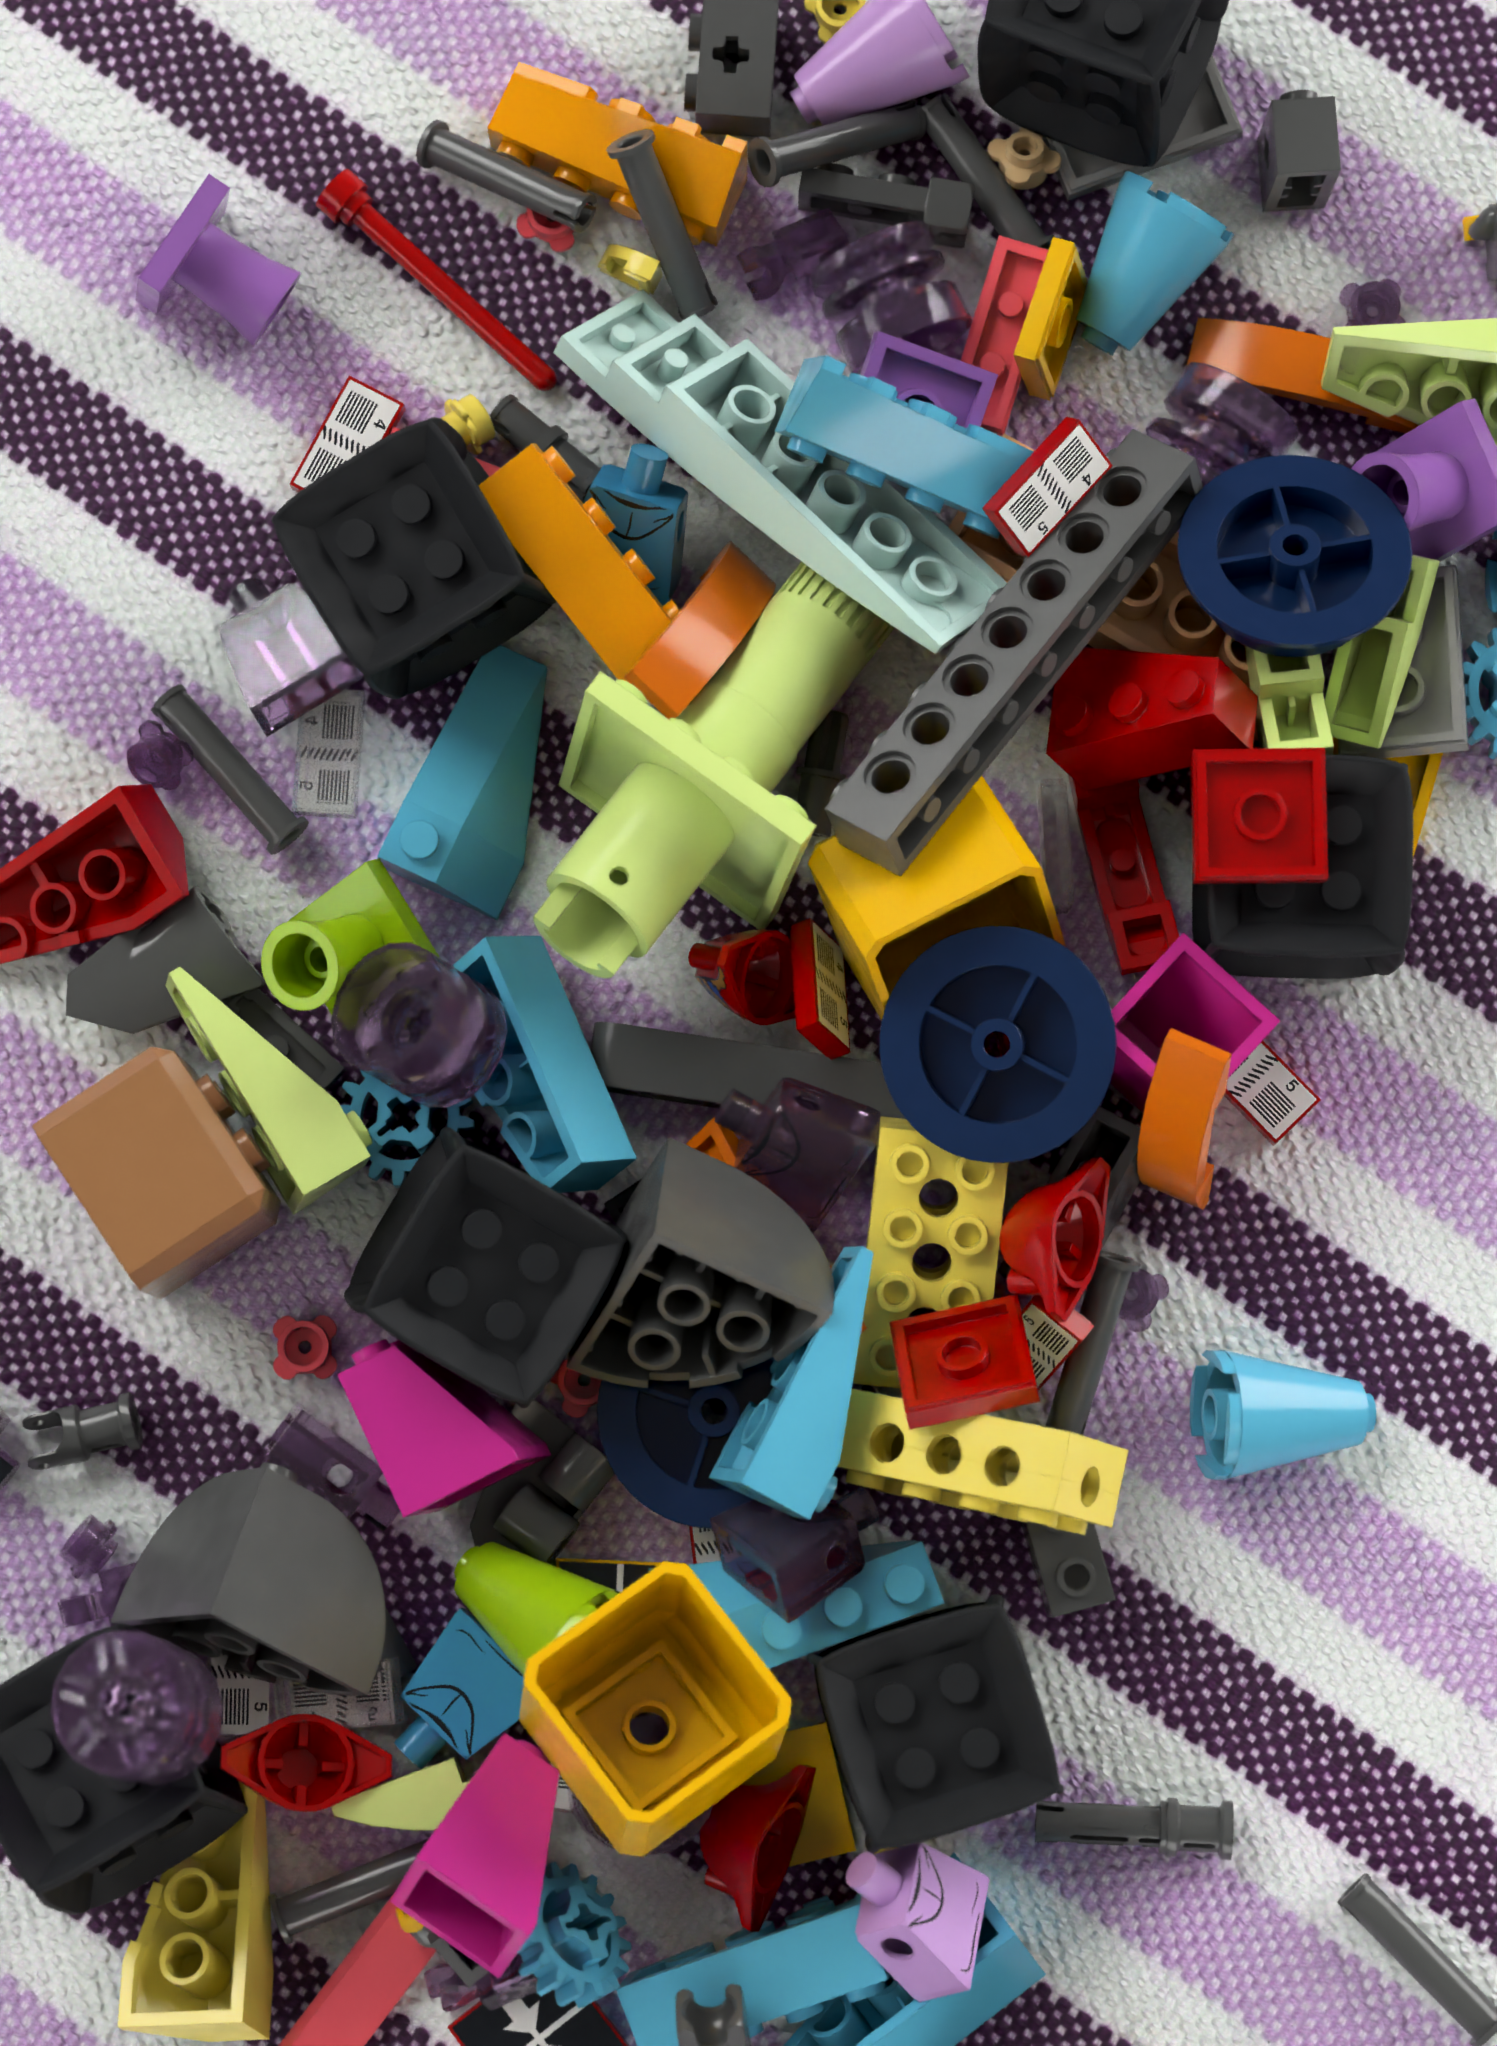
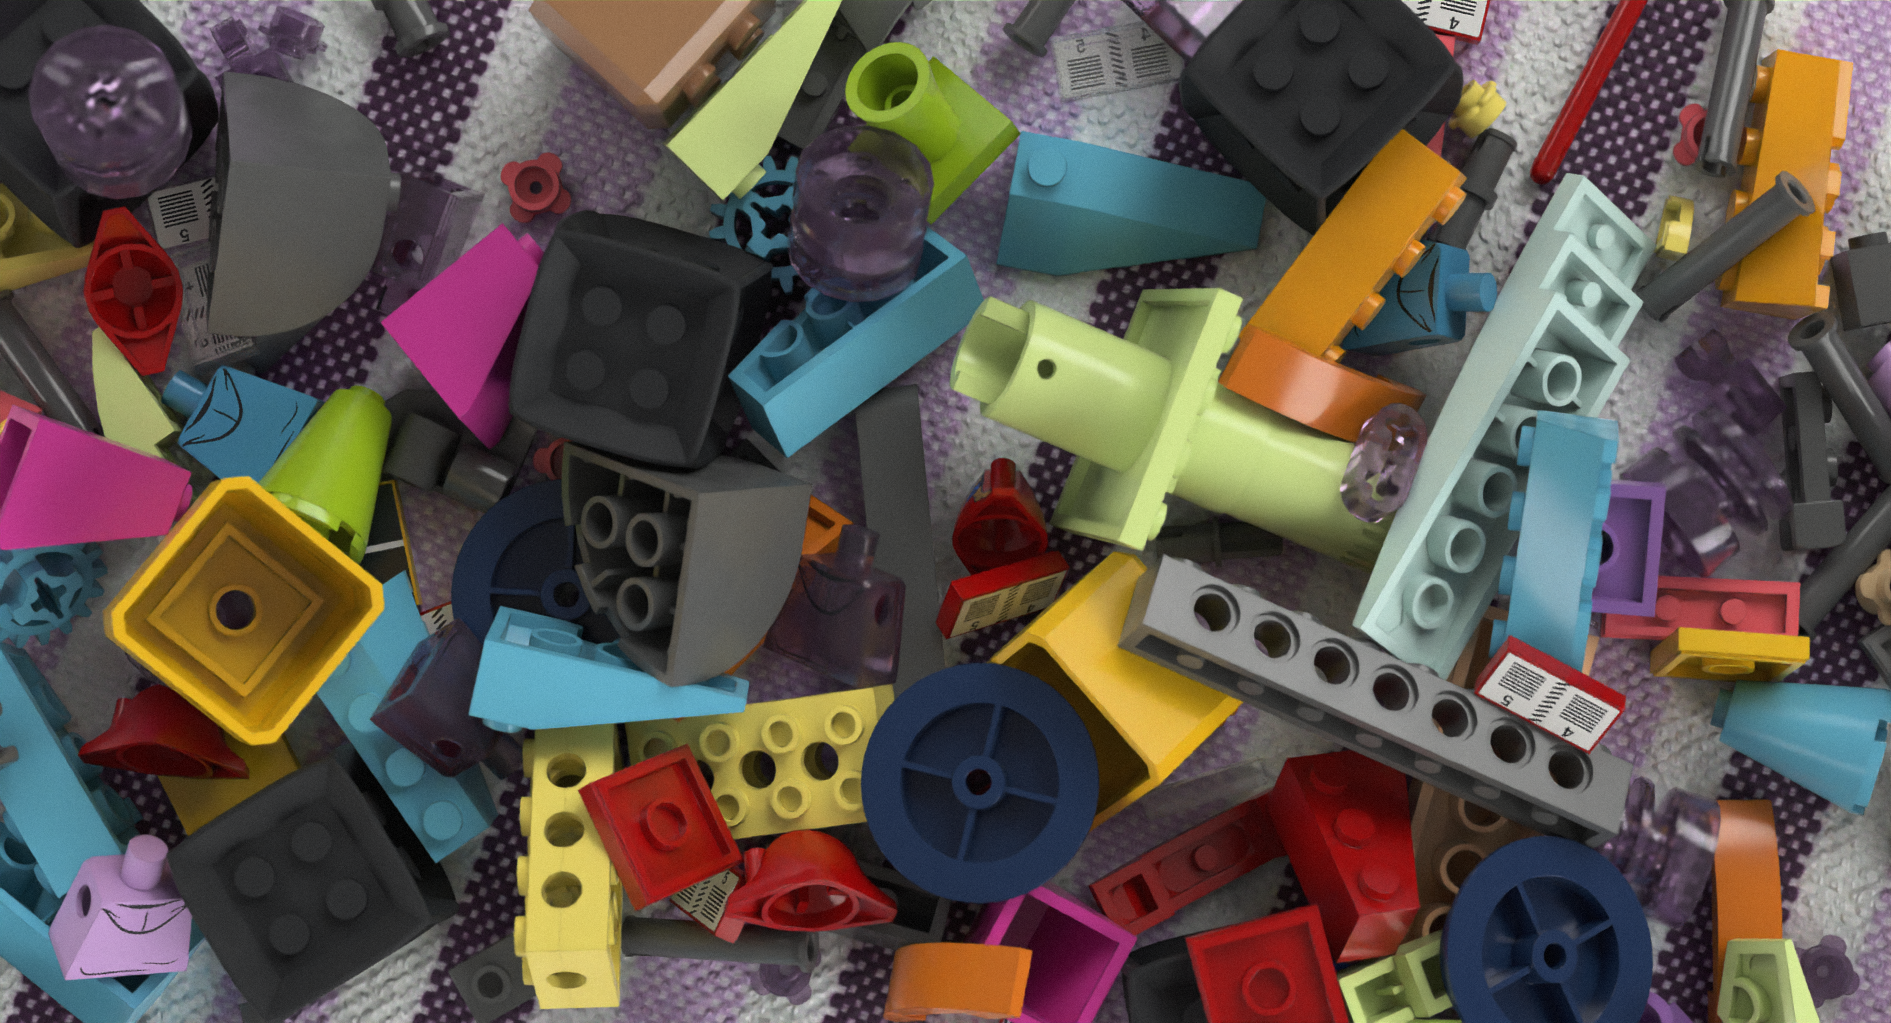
camera: 70 degrees right, 5 degrees up
(795, 579) = (1372, 457): none -> beam

